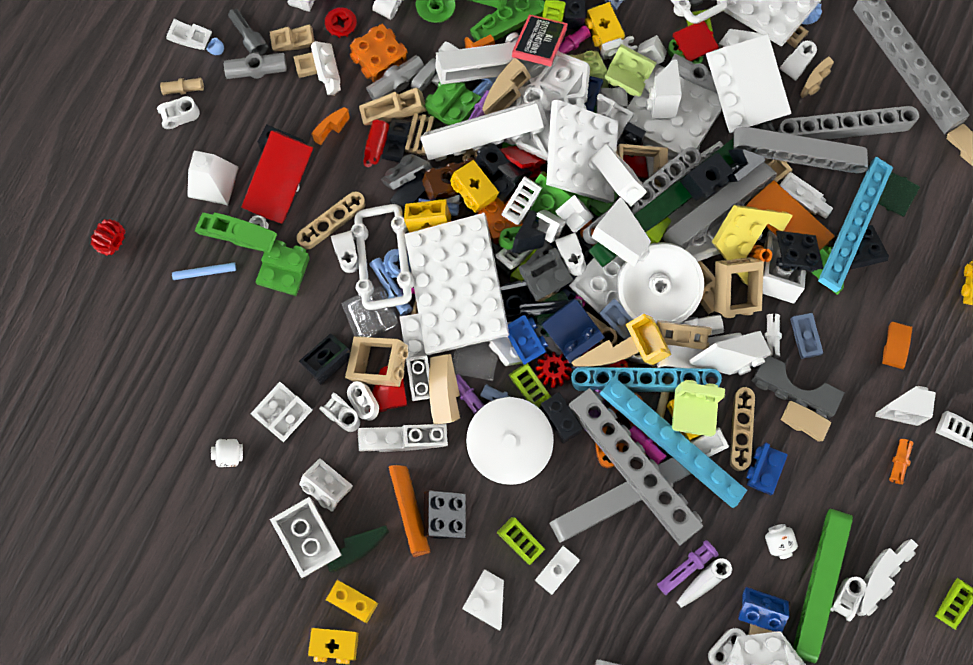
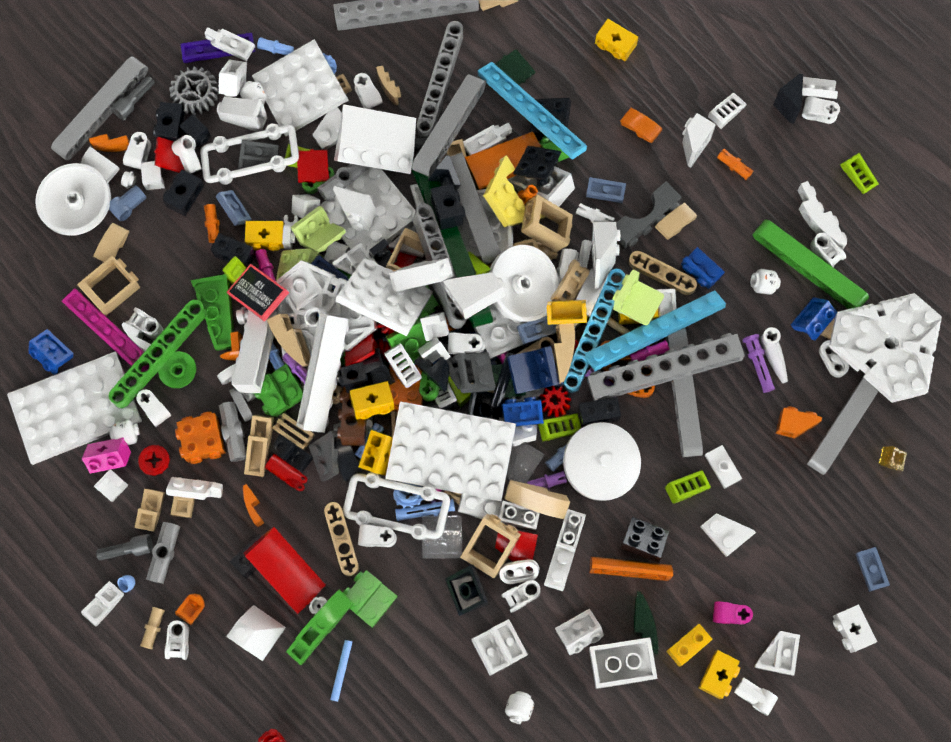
camera: 65 degrees left, 0 degrees up
(212, 112) = (191, 608): none -> orange plate
(400, 631) = (728, 613): none -> dark pink piece
(636, 631) = (794, 423): none -> orange slope

